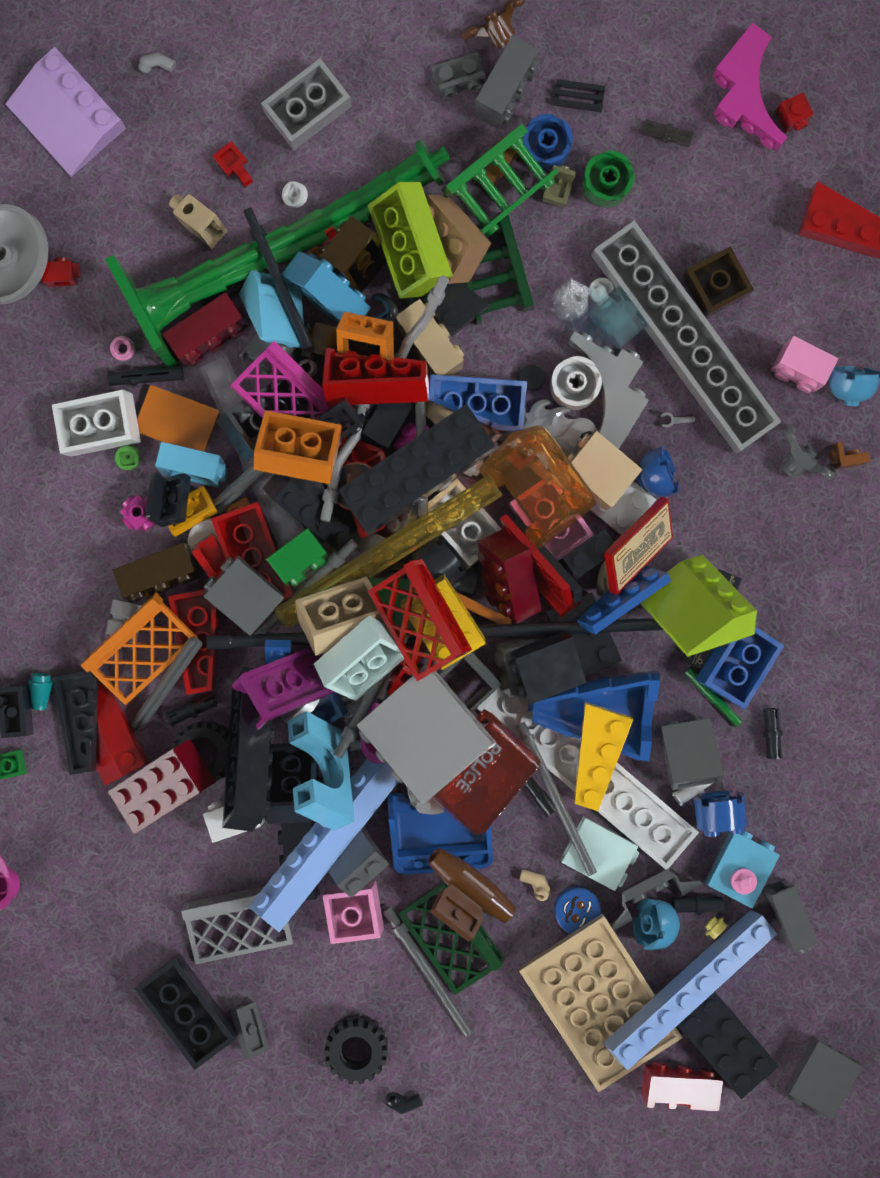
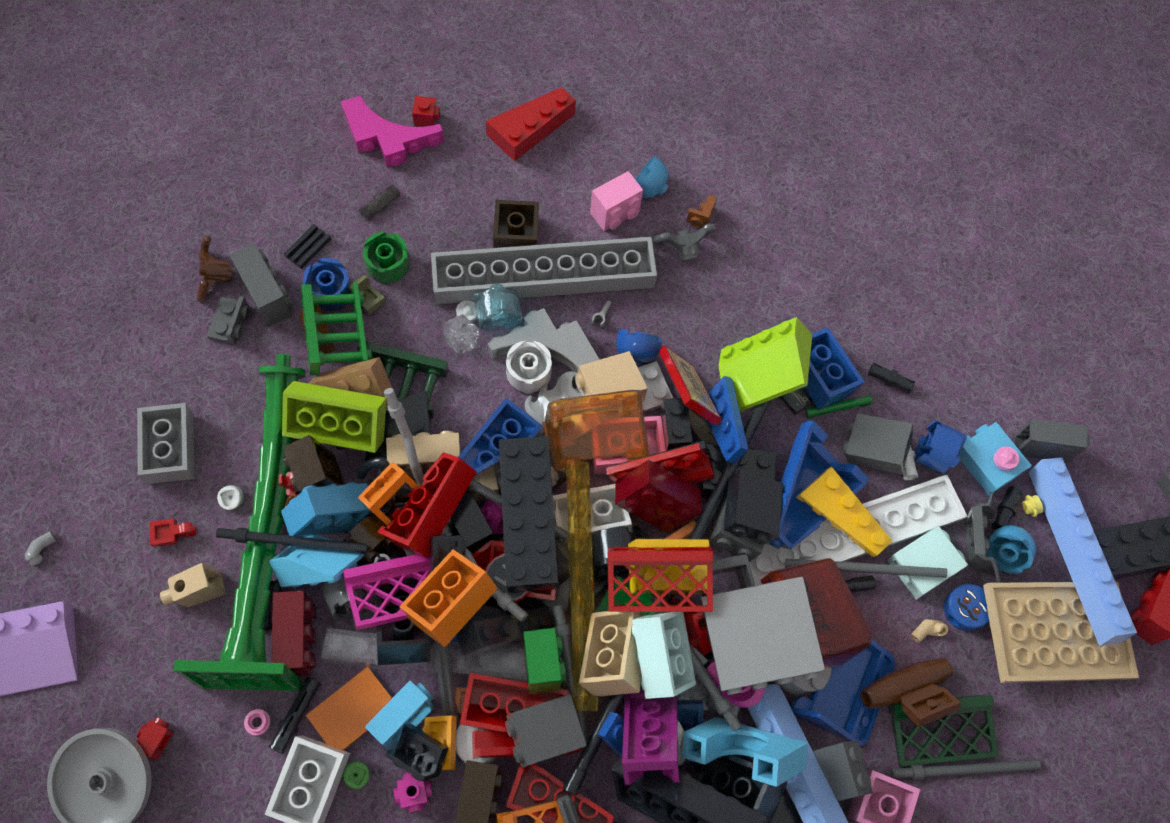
camera: 65 degrees left, 20 degrees down
(533, 376) = (499, 395): black tile -> none

